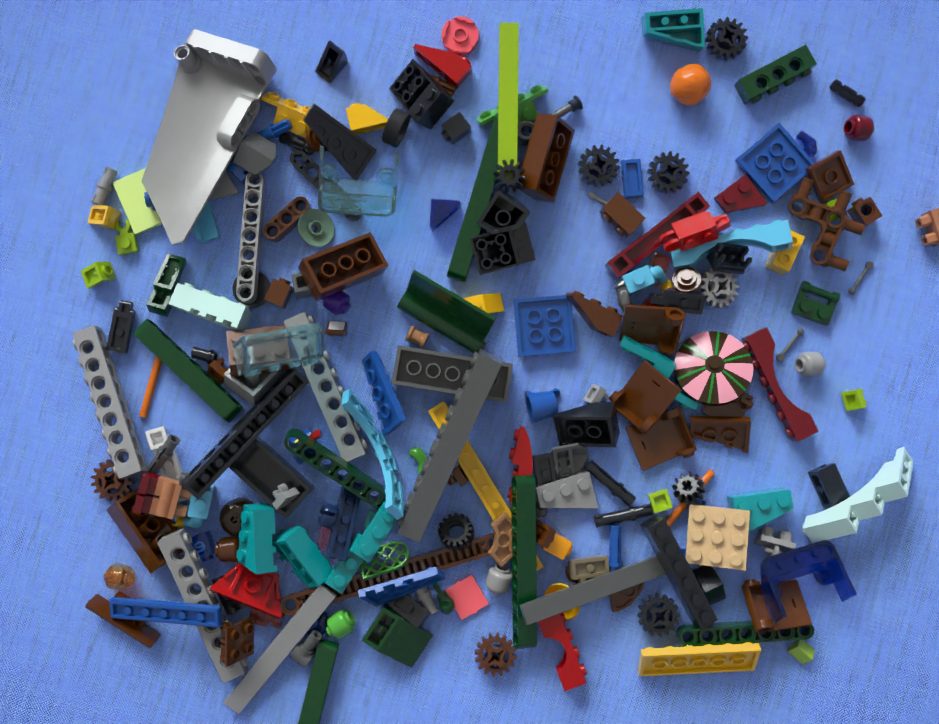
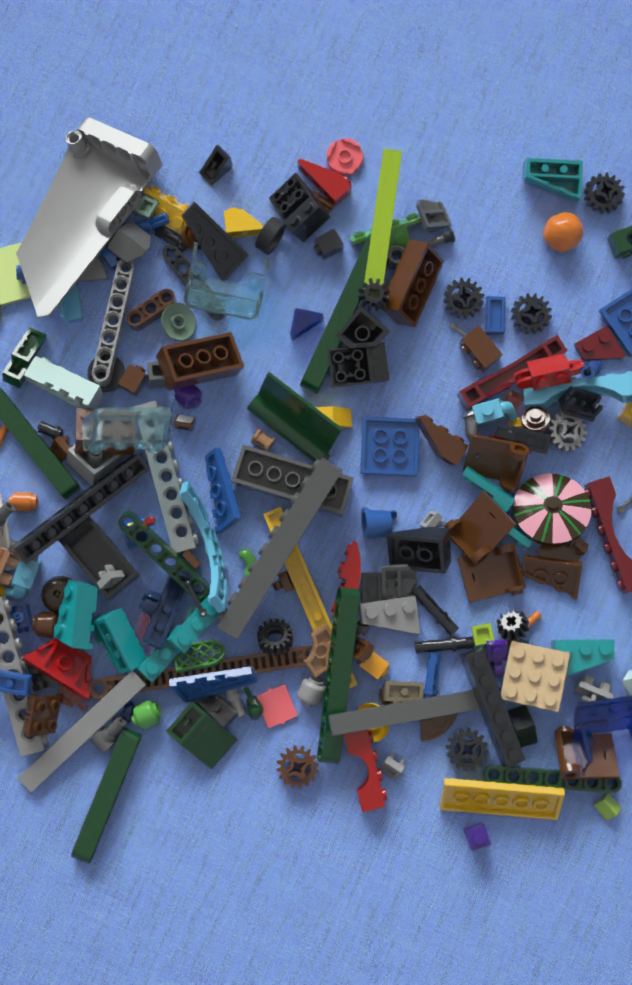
camera: 10 degrees right, 5 degrees down
(188, 430) = (24, 501): none -> orange brick
(266, 115) = (145, 207): none -> sand green slope
(363, 465) = (192, 560): none -> reddish brown tile
(381, 520) = (202, 612): none -> black hinge
(557, 84) = (433, 215): none -> dark grey slope
(586, 642) = (391, 767): none -> light grey tile
(675, 517) = (496, 653): none -> dark purple plate
(679, 698) = (477, 836): none -> dark purple brick
(737, 222) = (592, 368): none -> blue pin

